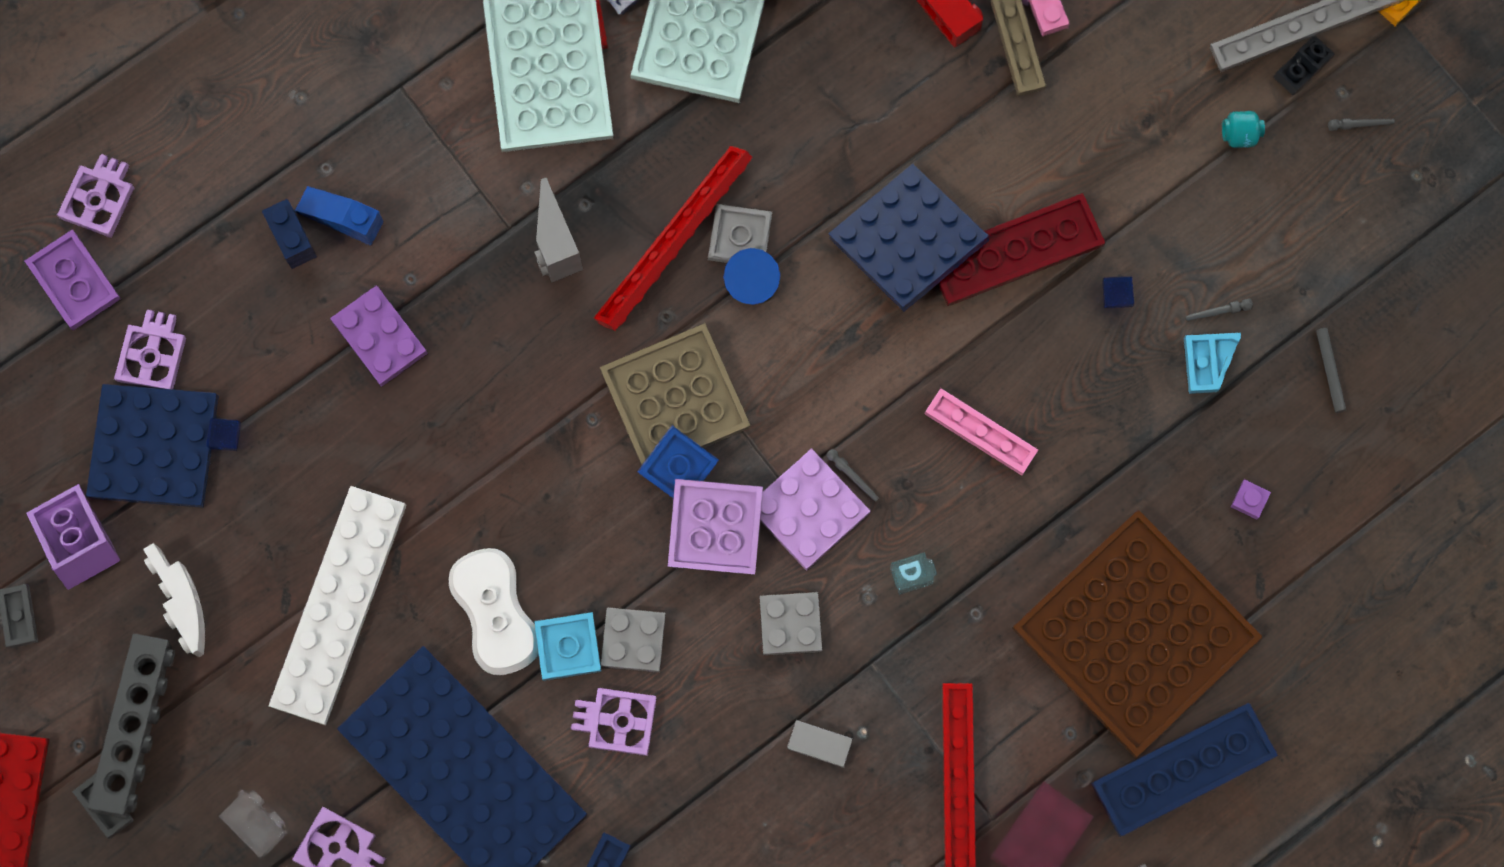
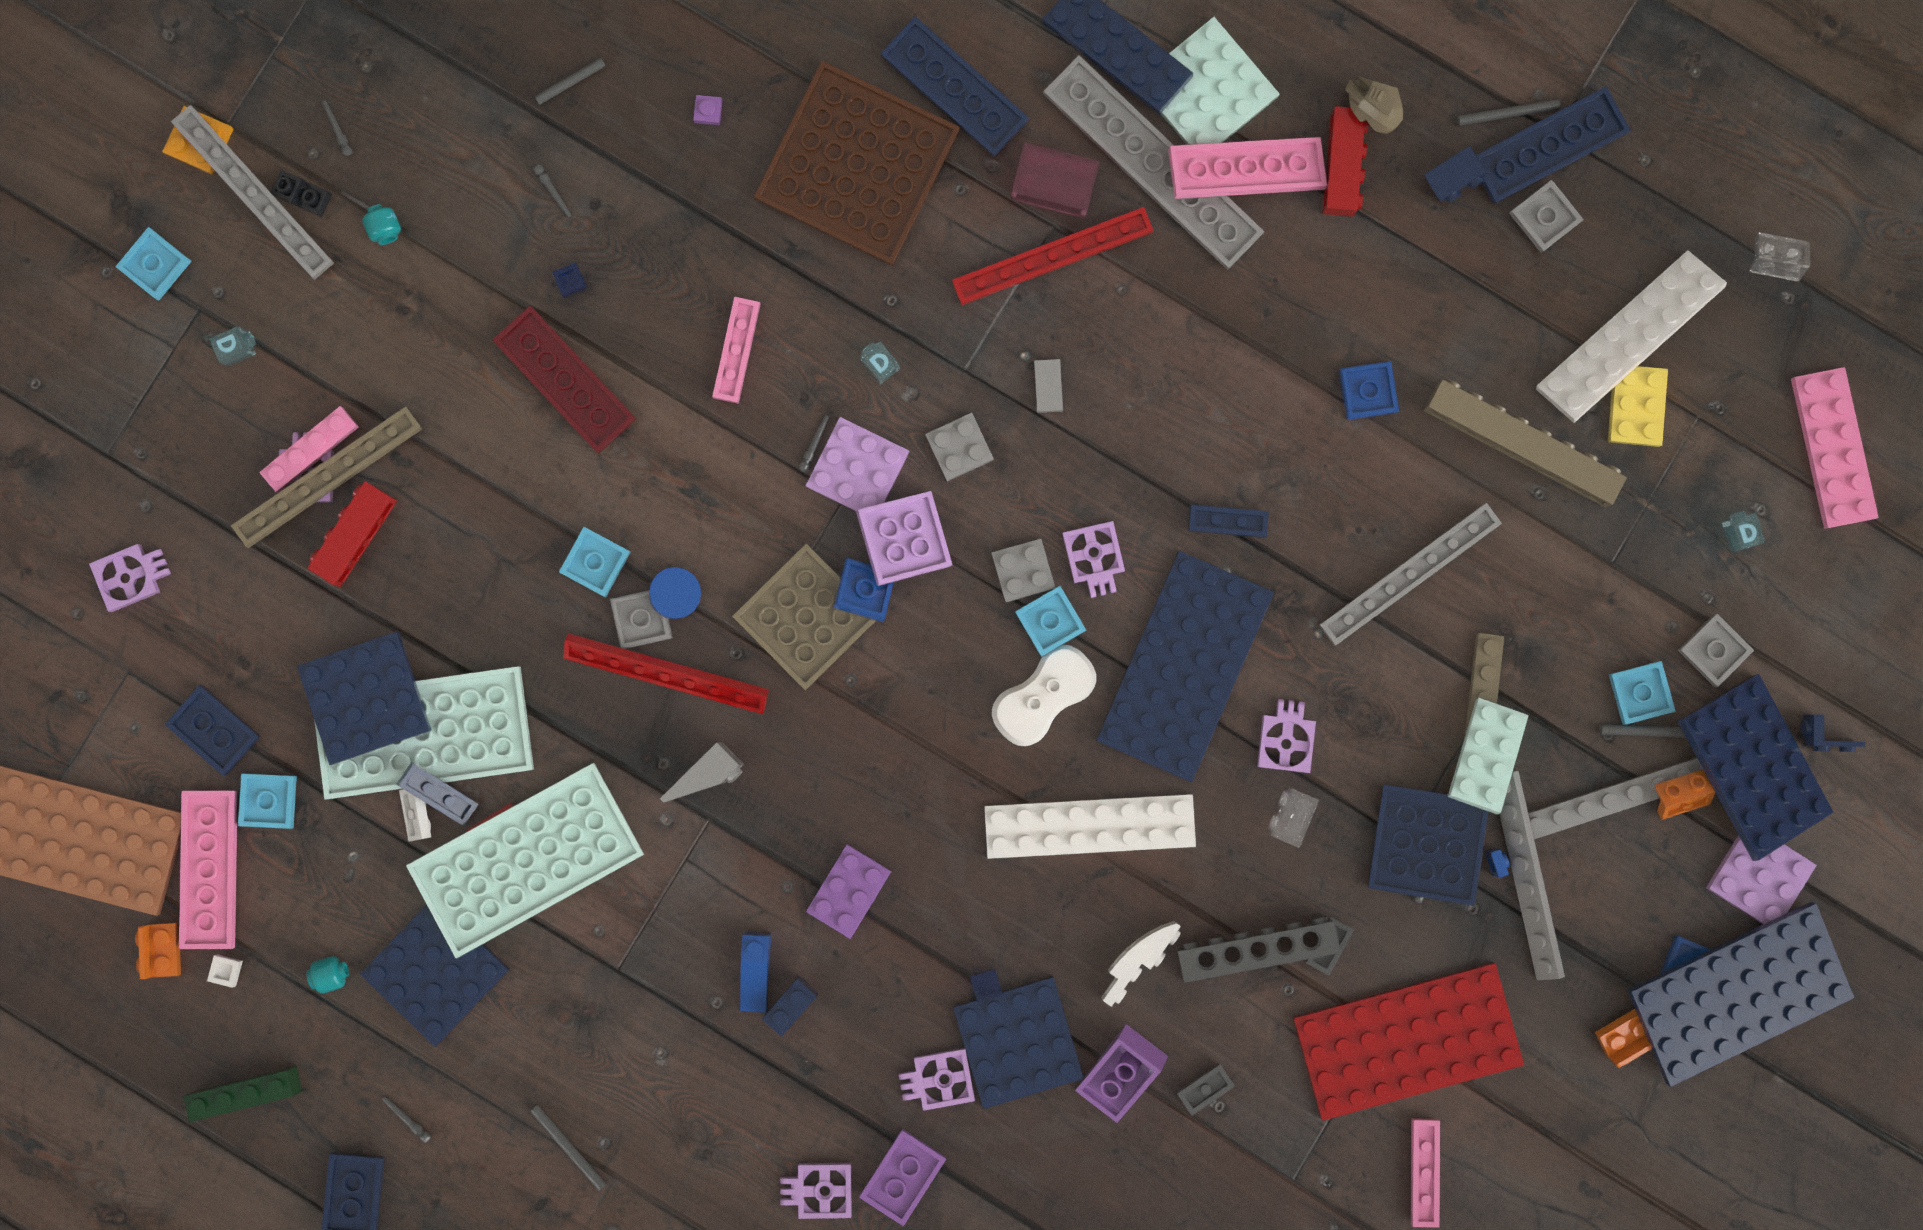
camera: 115 degrees left, 10 degrees up
(815, 210) = (594, 562): none -> medium azure plate
(908, 237) = (589, 472): dark blue plate -> none
(1208, 360) = (601, 184): medium azure wing -> none

